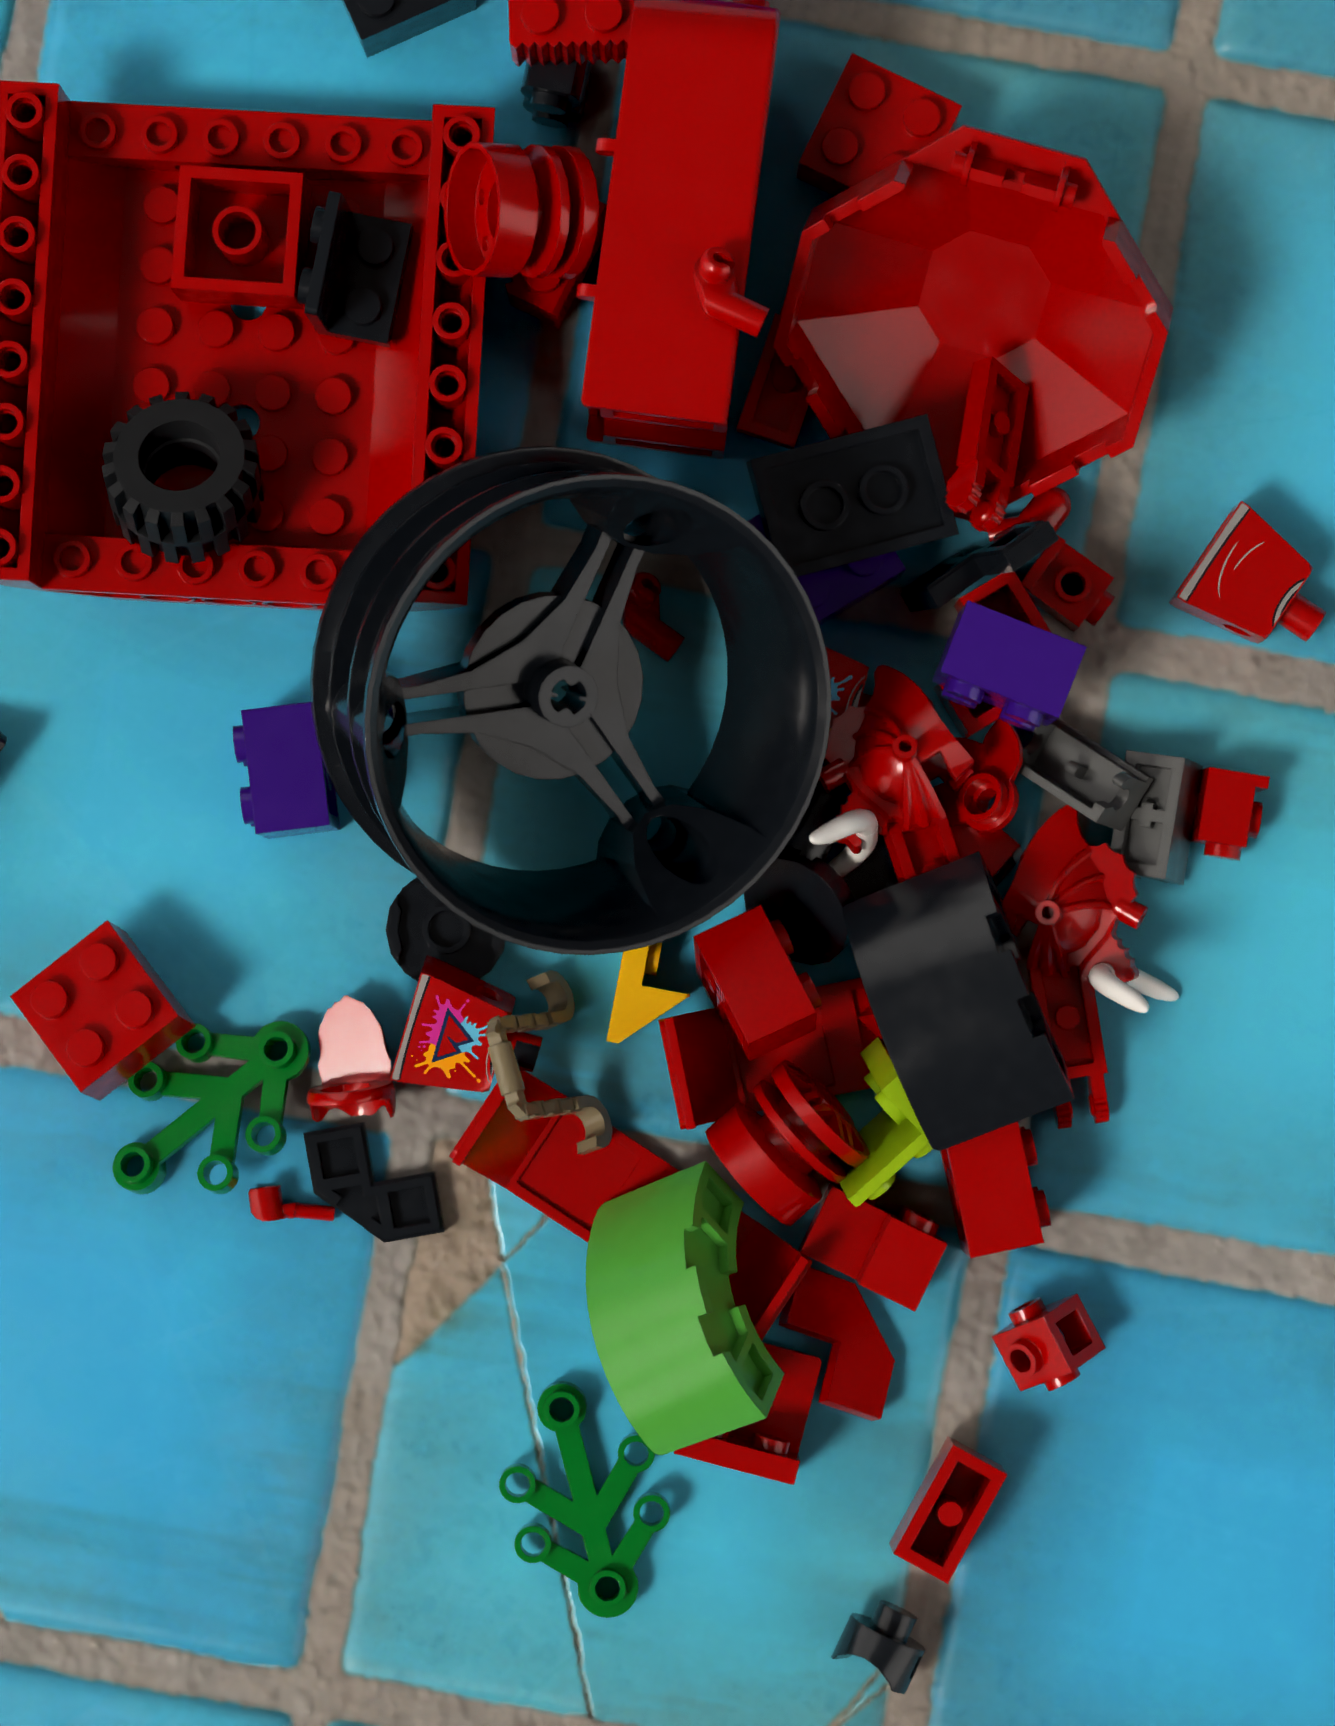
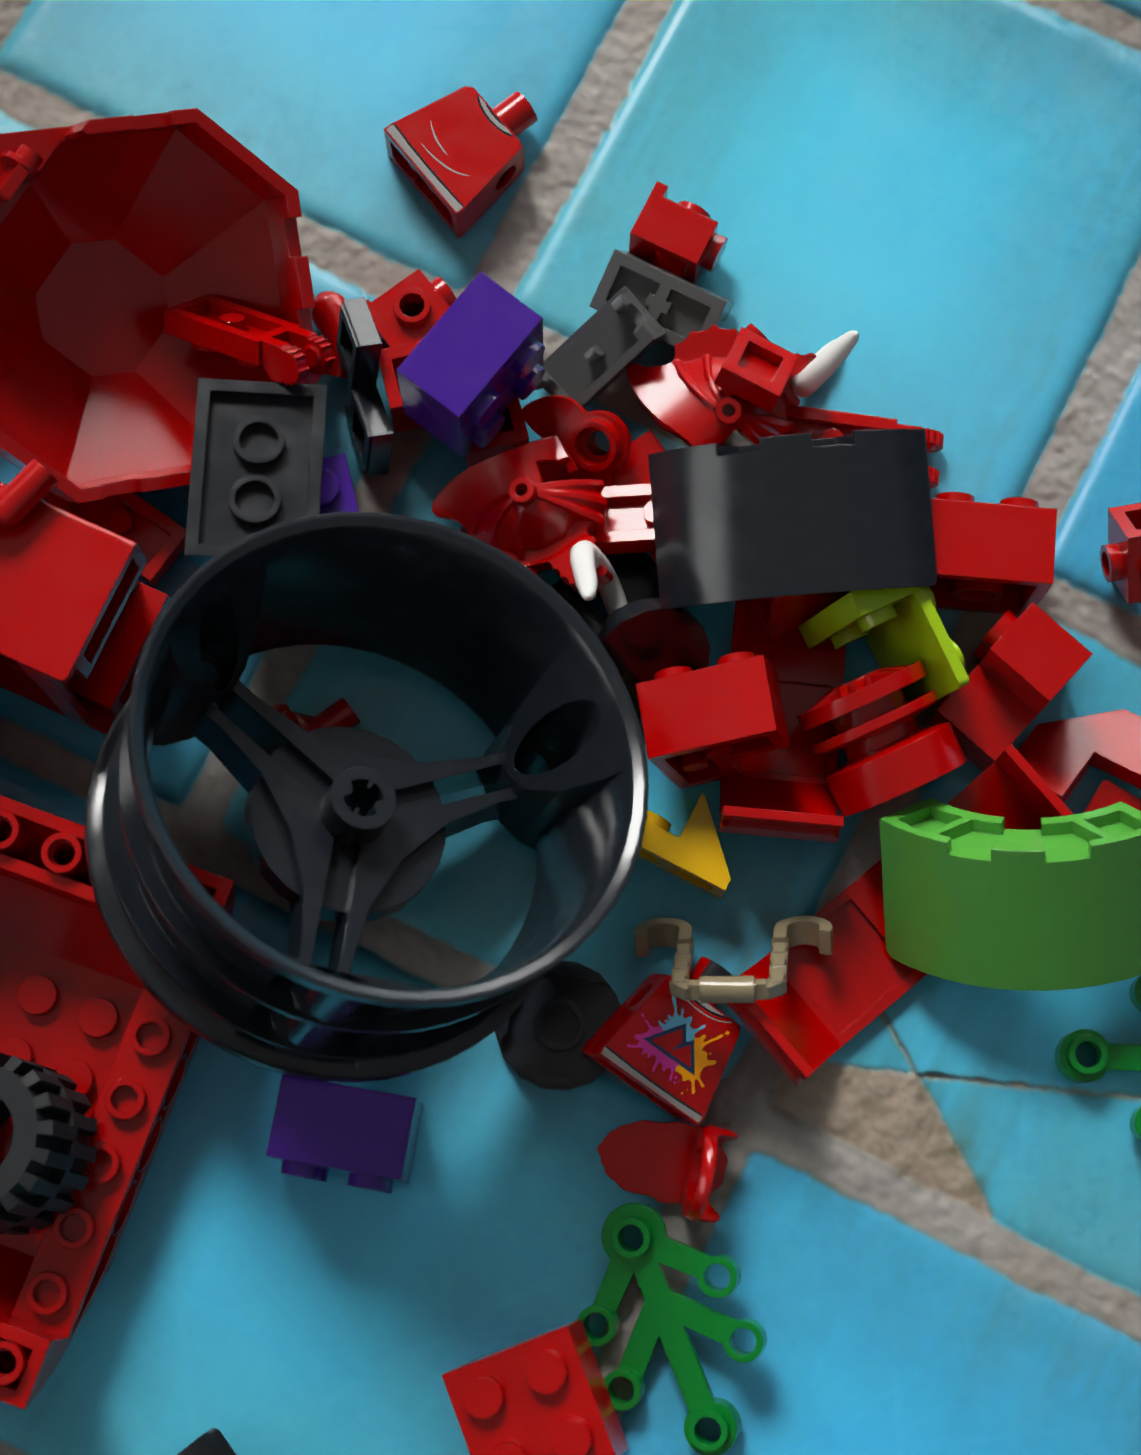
camera: 75 degrees left, 10 degrees down
(268, 1205) = (791, 1300): red hand -> none
(346, 1180) = (827, 1177): black tile -> none
(1095, 926) = (756, 369): none -> red tile

